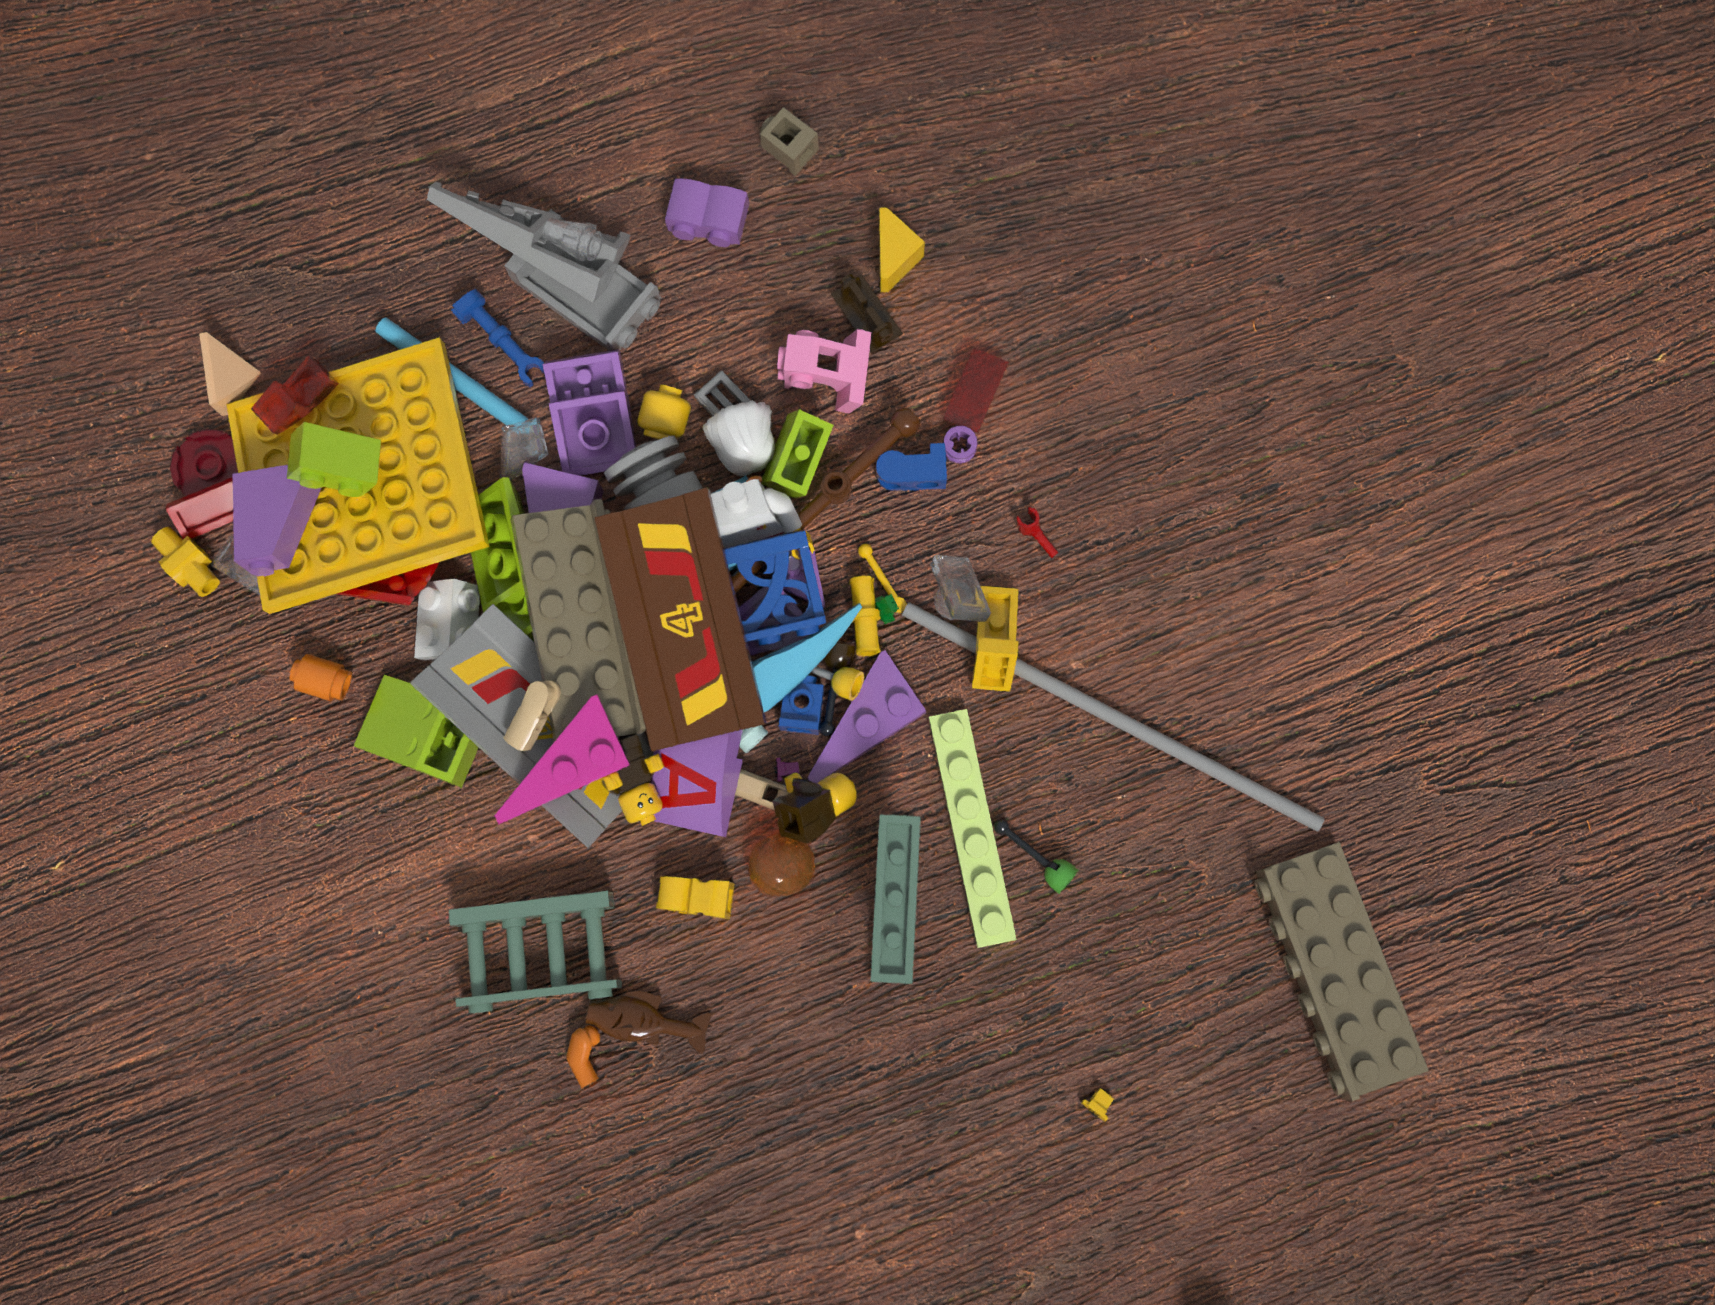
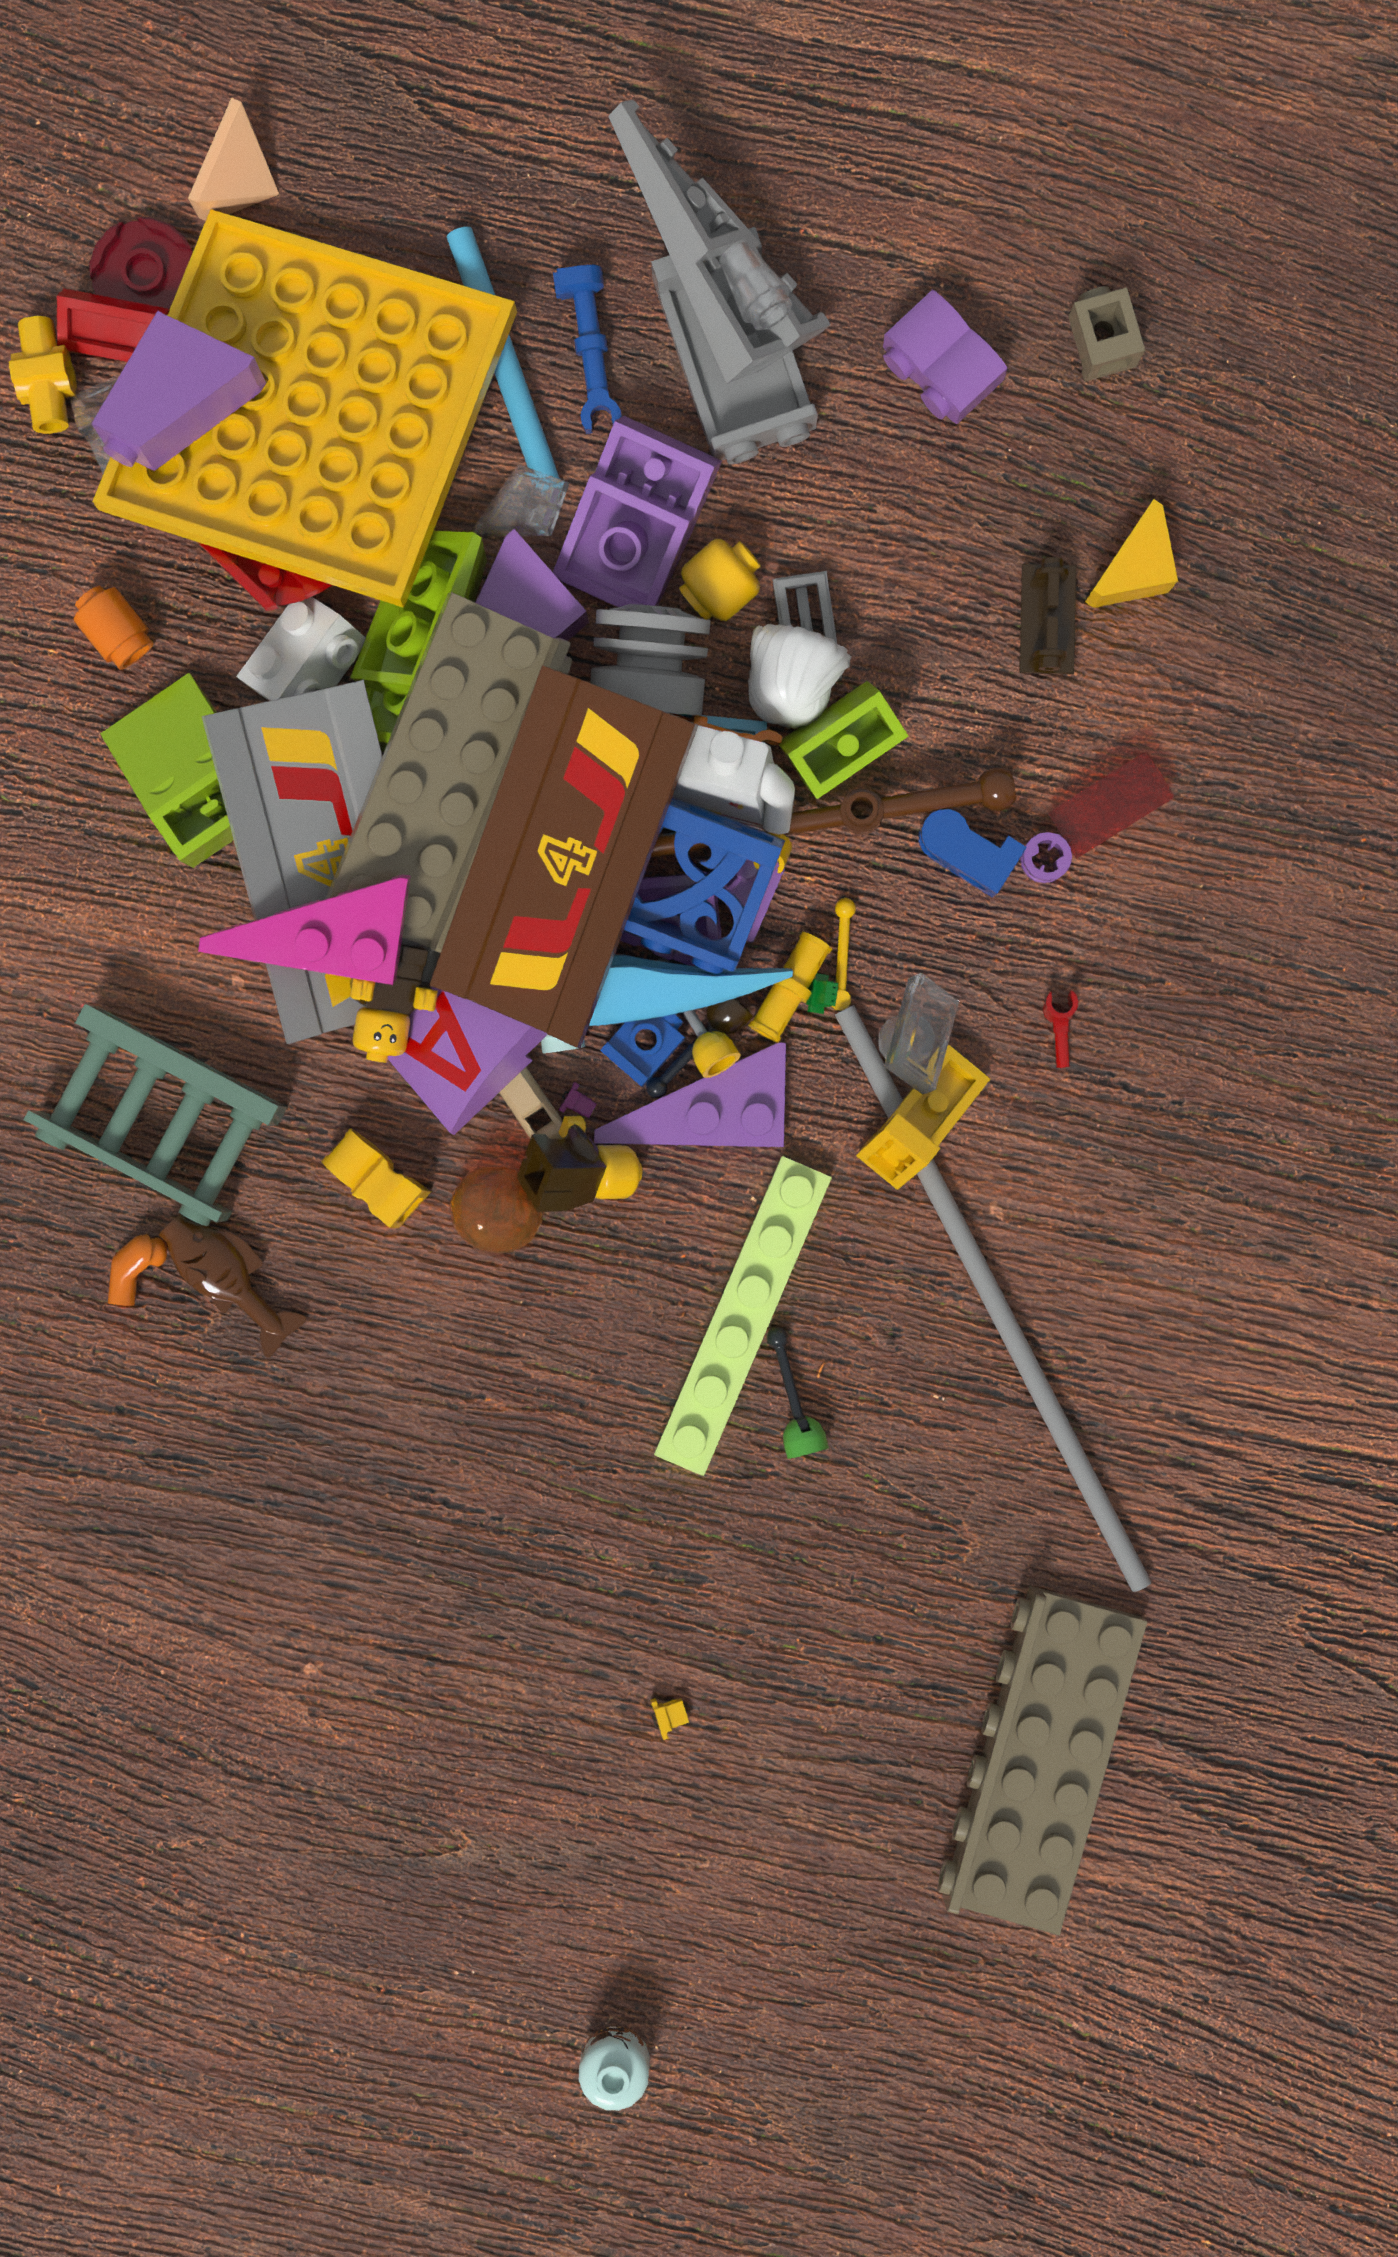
camera: 25 degrees right, 10 degrees up
(290, 402) = (298, 260): clear red slope -> none
(333, 459) = (285, 377): lime brick -> none
(532, 714) = (320, 849): tan bar -> none
(799, 365) = (921, 630): bright pink tile -> none
(895, 899) = (591, 1347): sand green fence -> none

